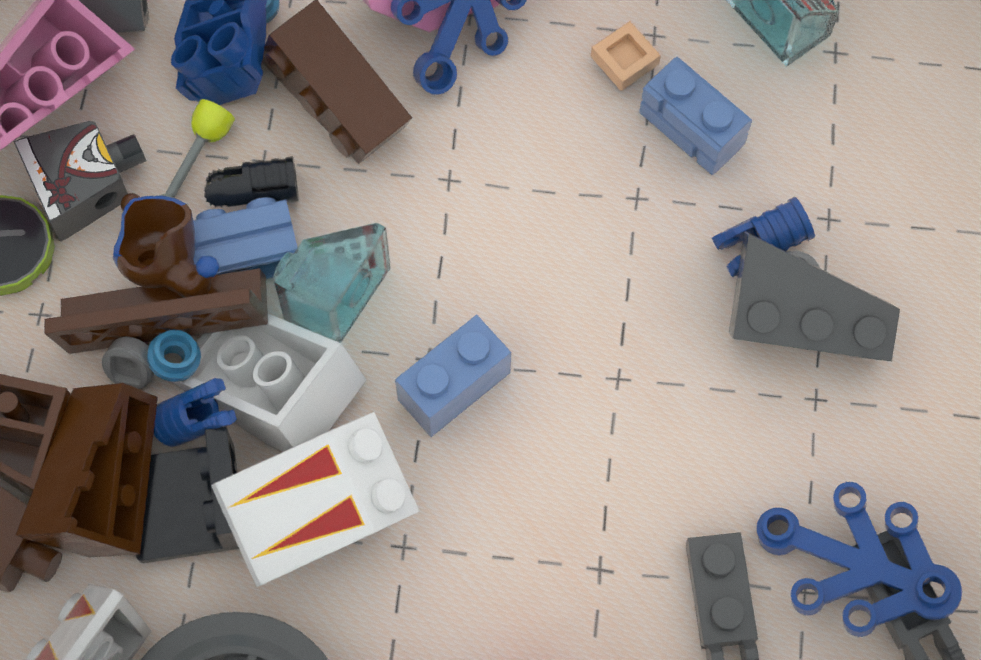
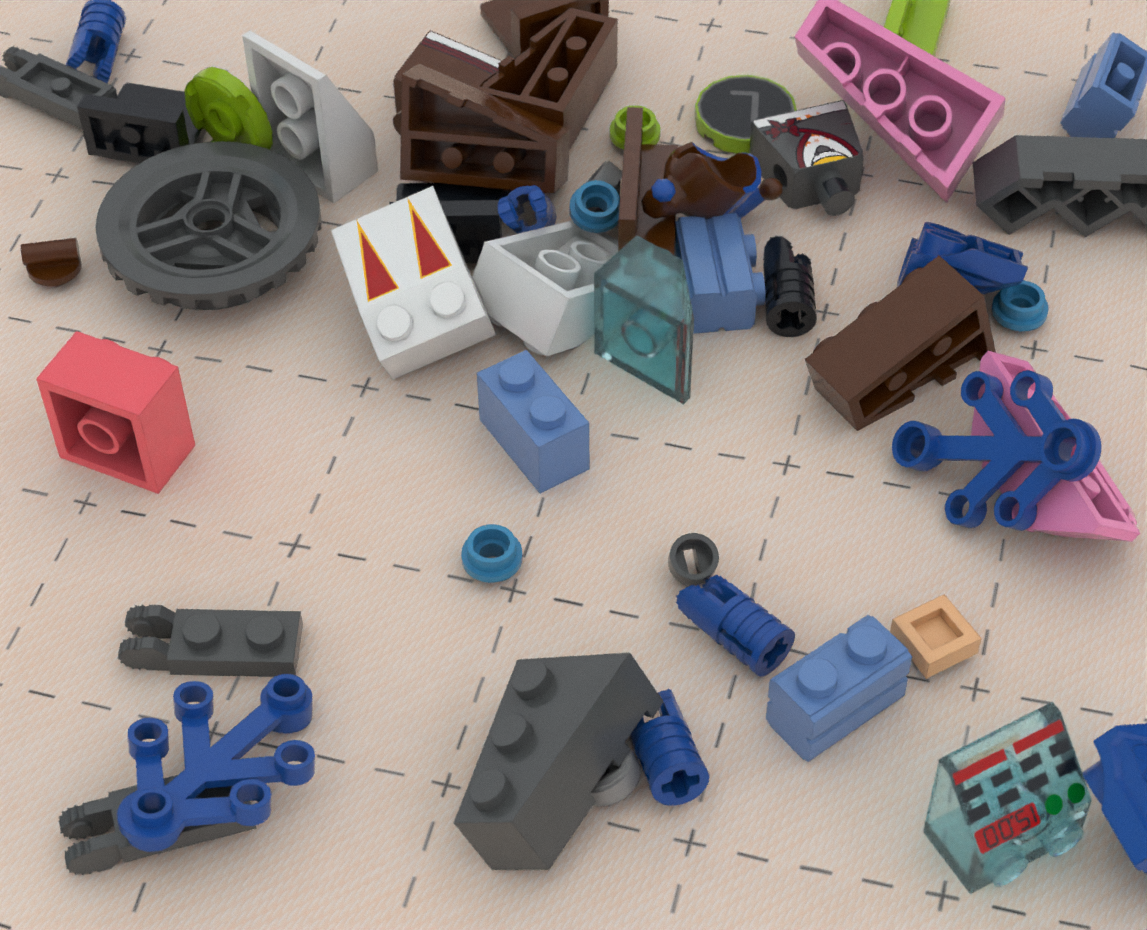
camera: 100 degrees right, 20 degrees down
(24, 336) = (651, 127): none -> lime plate
(209, 124) = (866, 260): neon yellow hinge -> none
(579, 225) = (705, 558): none -> dark grey hinge
(596, 380) = (487, 542): none -> dark azure plate
(638, 195) = (737, 624): none -> blue hinge

